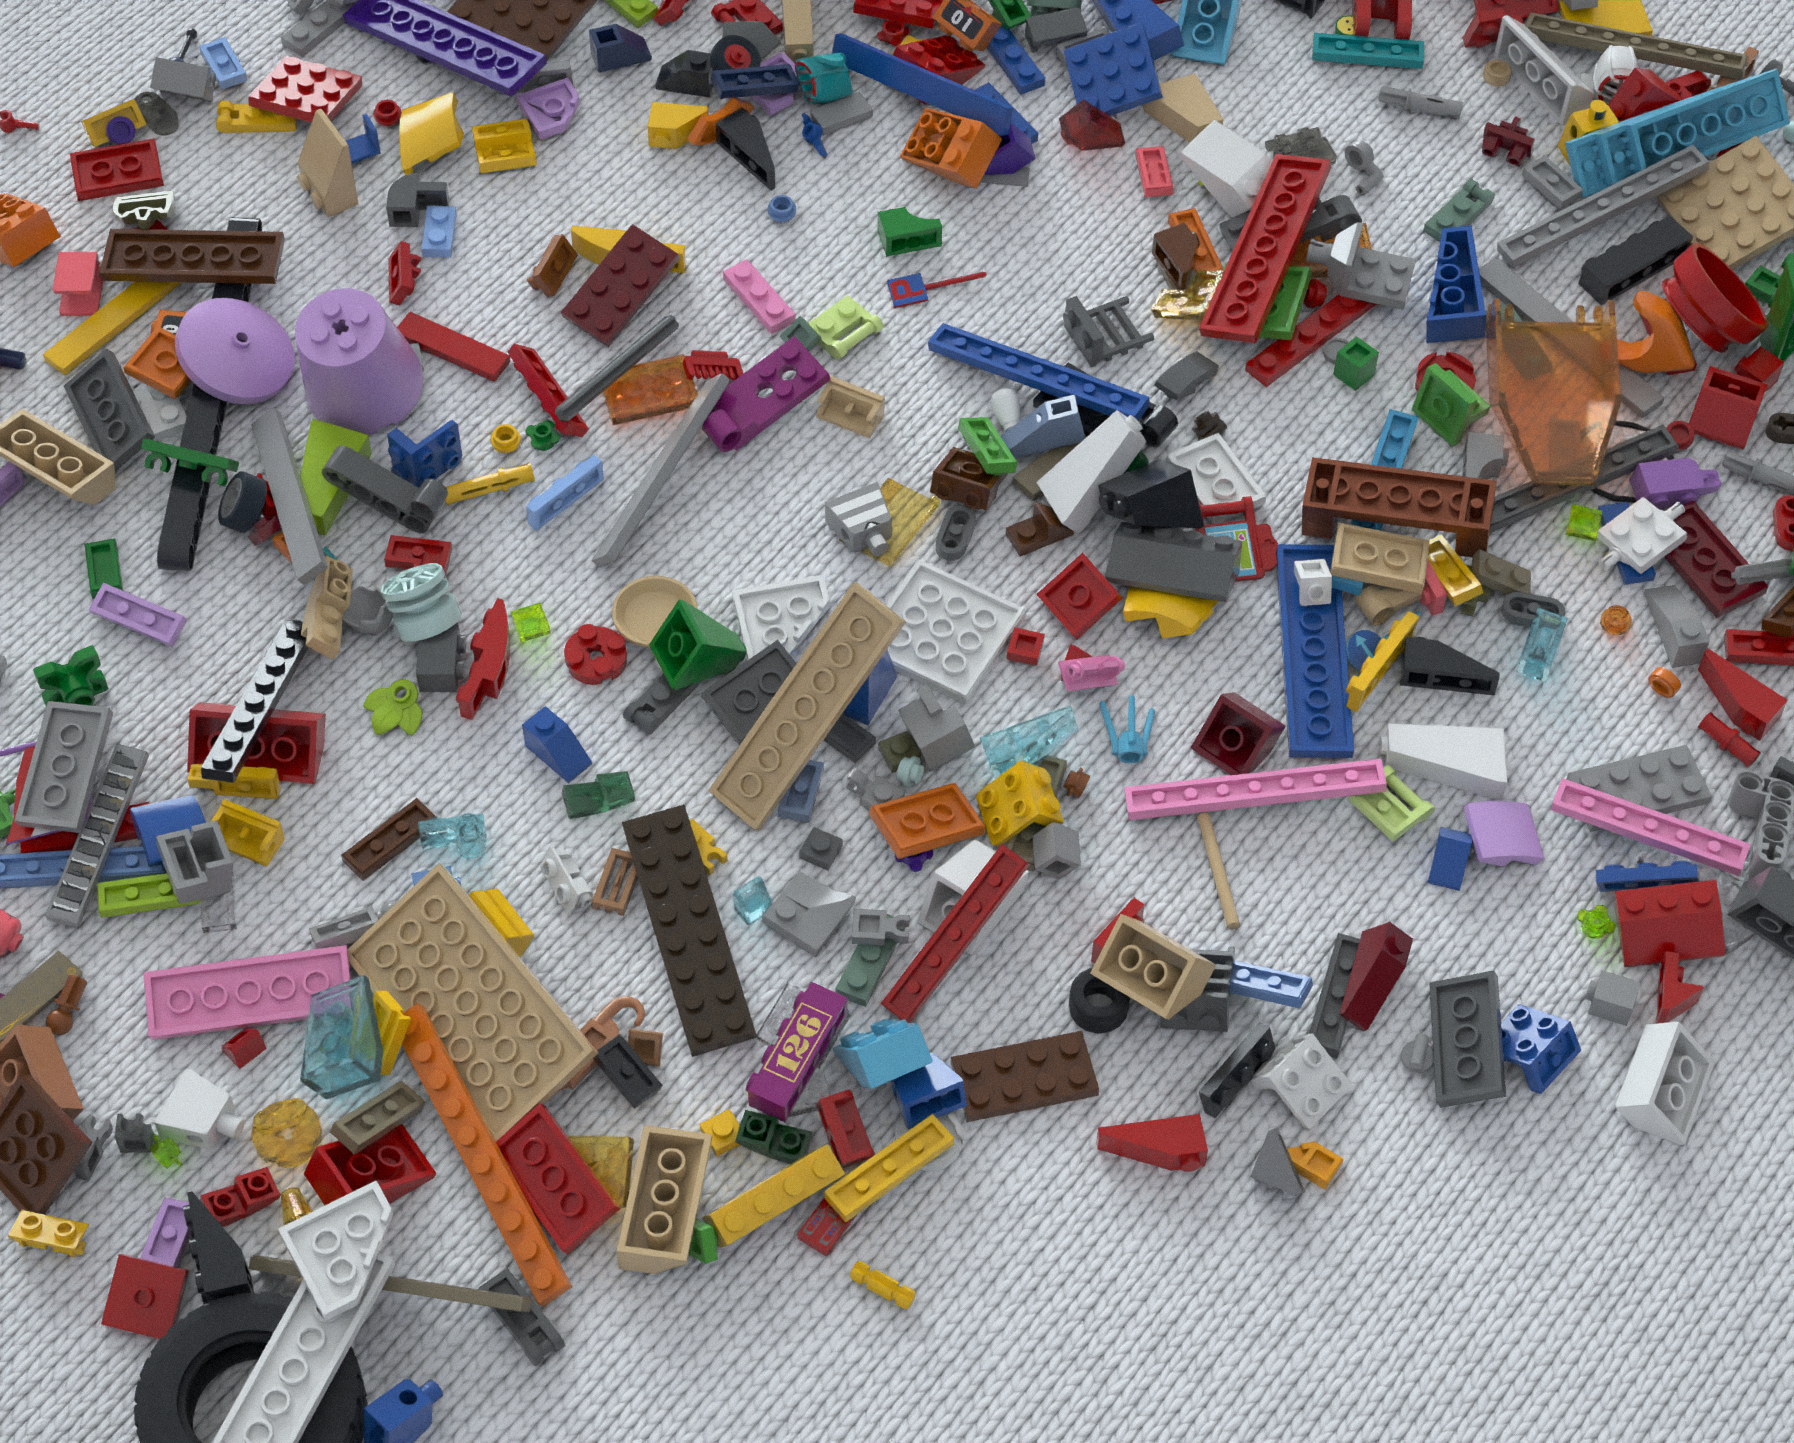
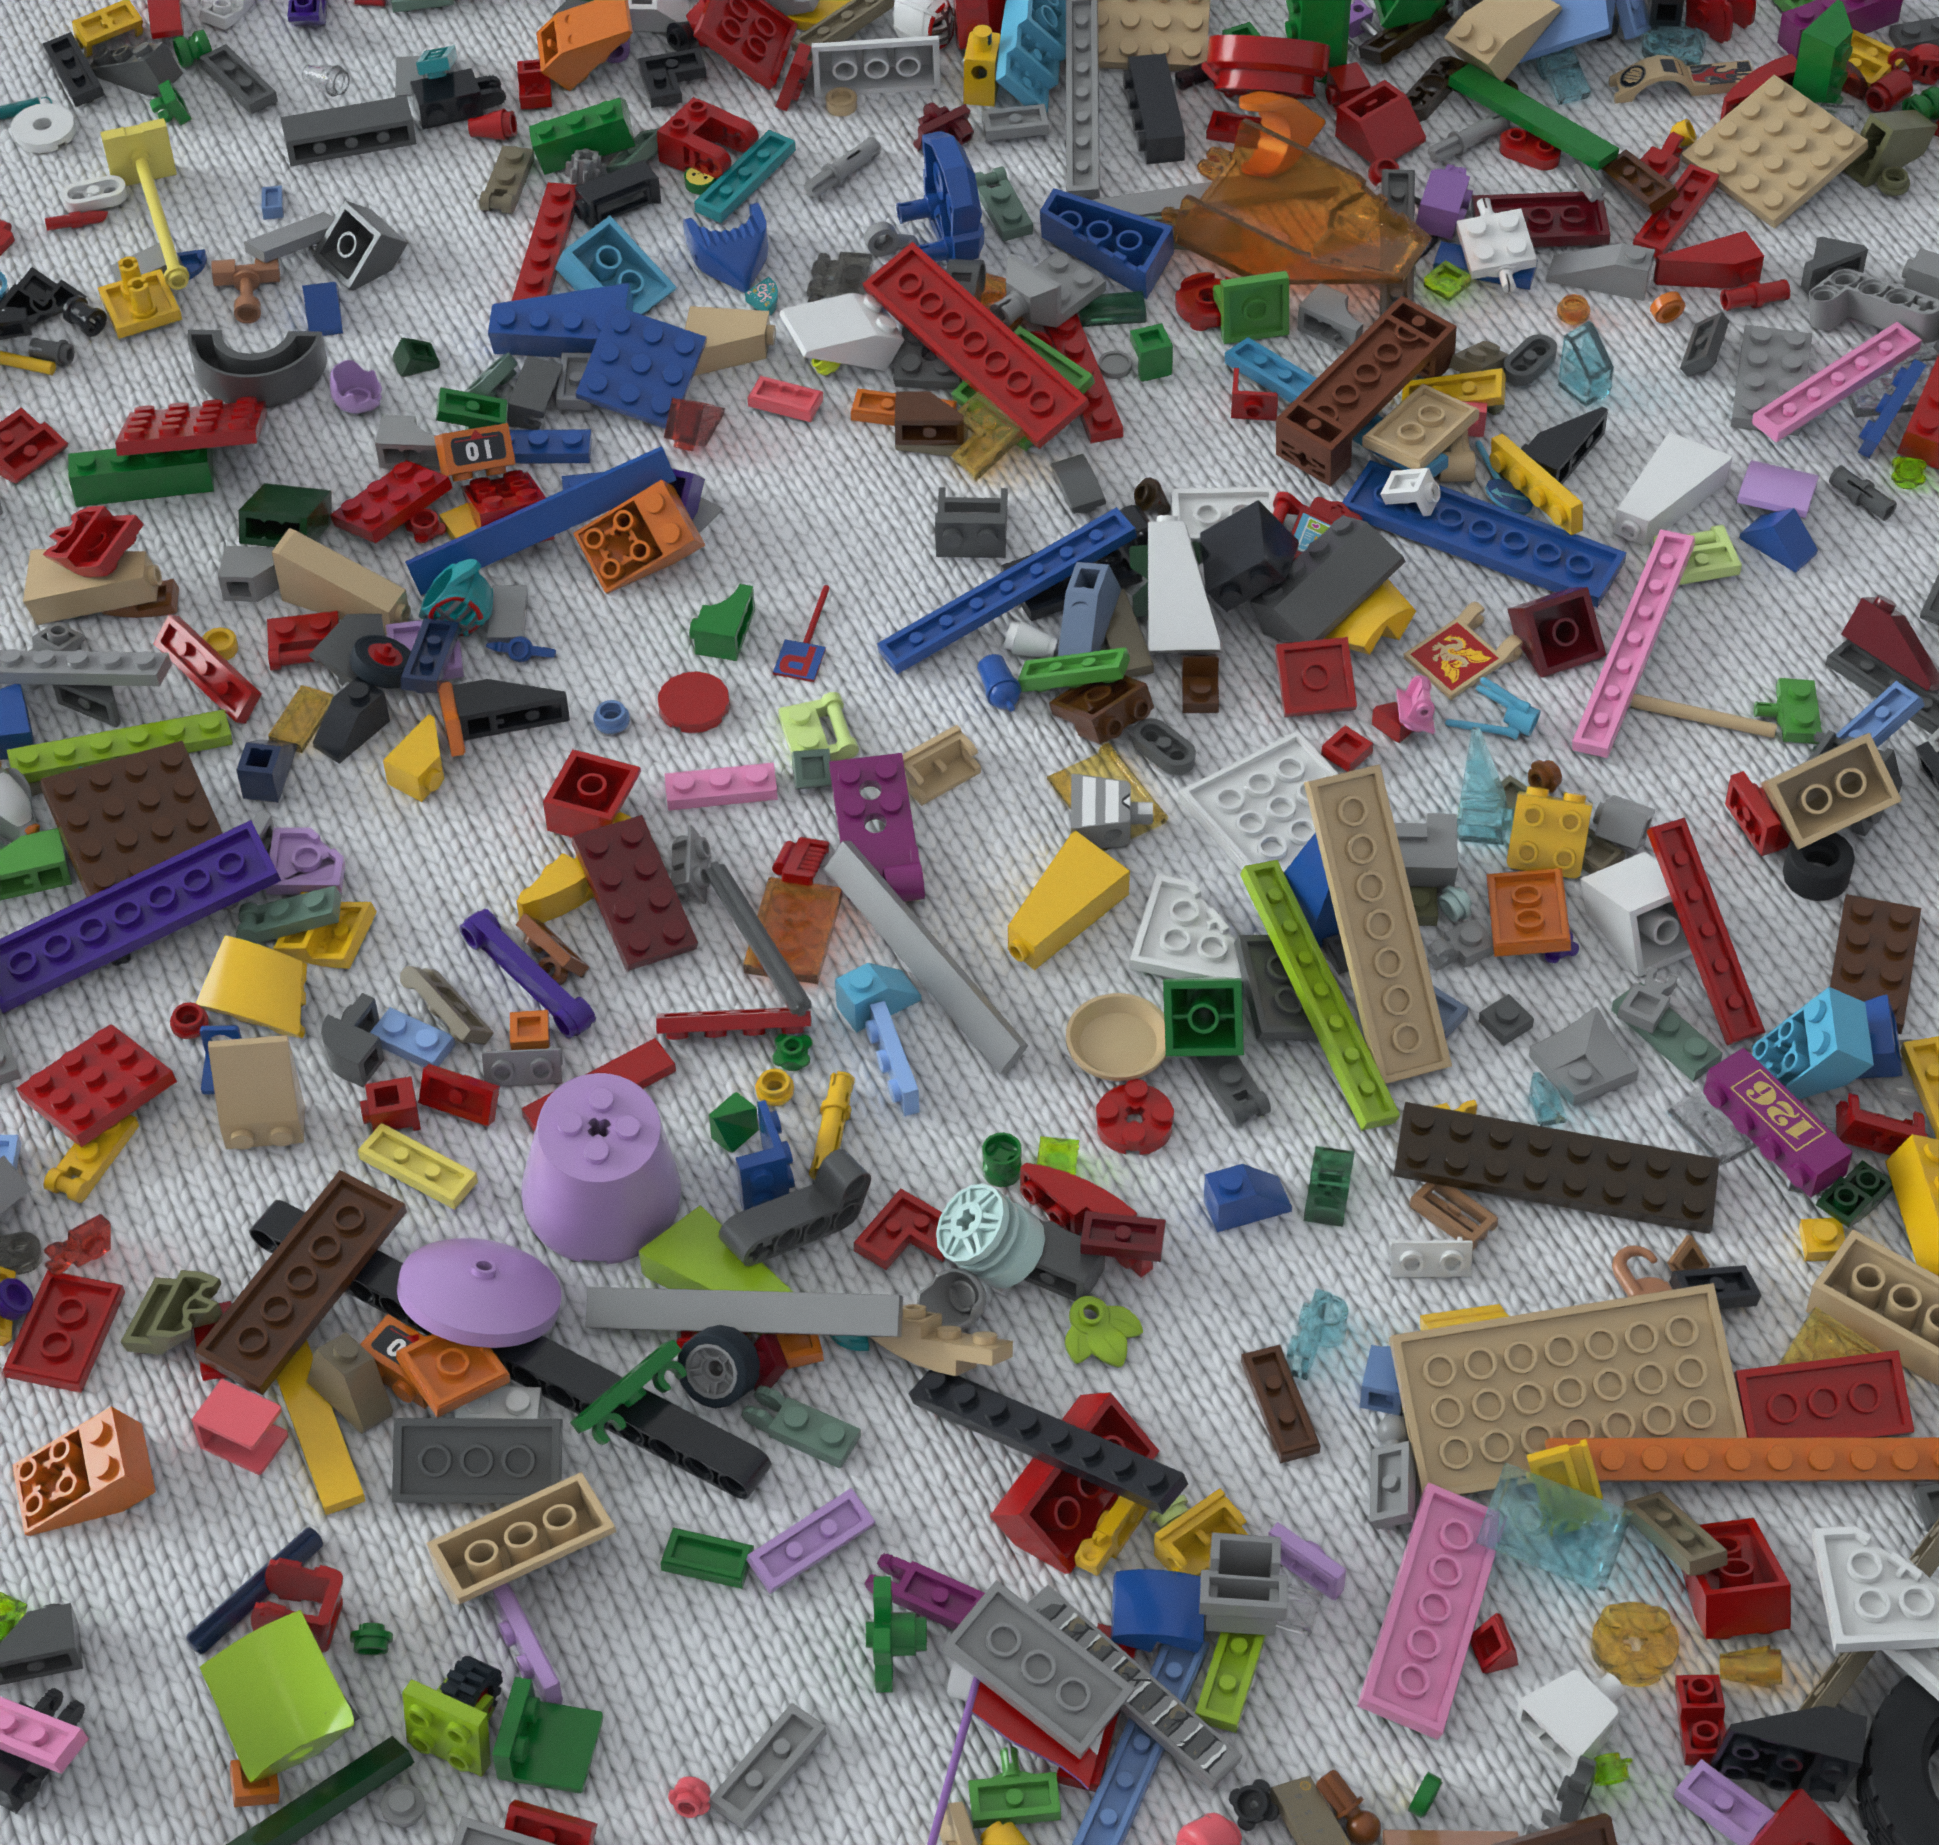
camera: 60 degrees left, 5 degrees down
(43, 946) = (1242, 1799): none -> black plate
(94, 1045) = (1425, 1795): none -> green tile
(128, 698) = (927, 1591): none -> magenta hinge
(136, 320) = (350, 1382): none -> dark tan slope
(178, 143) = (83, 1244): none -> clear red plate
(231, 576) = (803, 1427): none -> sand green hinge
(255, 902) = (1310, 1562): none -> lavender plate
(260, 804) = (1176, 1509): none -> yellowish green plate
(334, 267) = (417, 1166): none -> light yellow plate
(371, 243) = (391, 1103): none -> red brick
(446, 296) = (523, 1066): none -> light grey hinge
(459, 677) = (1122, 1236): none -> dark red plate
(466, 423) = (733, 1122): none -> green slope
(471, 233) = (447, 1004): none -> dark tan plate
(477, 286) = (529, 1030): none -> orange plate
(497, 119) = (289, 915): none -> sand green plate
(504, 300) = (569, 1014): none -> dark purple piece
(510, 587) = (1001, 1159): none -> green wheel
(618, 456) = (871, 985): none -> medium azure slope
(669, 48) = (301, 717): none -> clear yellow tile
(682, 307) = (691, 854): none -> light grey hinge
(690, 218) = (587, 793): none -> red slope
(708, 762) = (1320, 995): none -> lime plate
(766, 531) = (1066, 900): none -> yellow slope
(827, 247) = (693, 701): none -> red tile
(948, 413) = (1000, 685): none -> blue piece
(1176, 683) = (1459, 657): none -> flag
(1253, 115) = (763, 296): none -> teal tile
(1263, 931) = (1794, 710): none -> bright green plate
(1279, 80) = (730, 255): none -> blue animal
(1345, 445) = (1252, 404): none -> red bracket
(1395, 326) = (1114, 309): none -> clear green tile
(1404, 168) = (948, 202): none -> blue brick
(1547, 896) = (1846, 481): none -> dark grey pin
(1650, 723) = (1704, 344): none -> dark grey plate

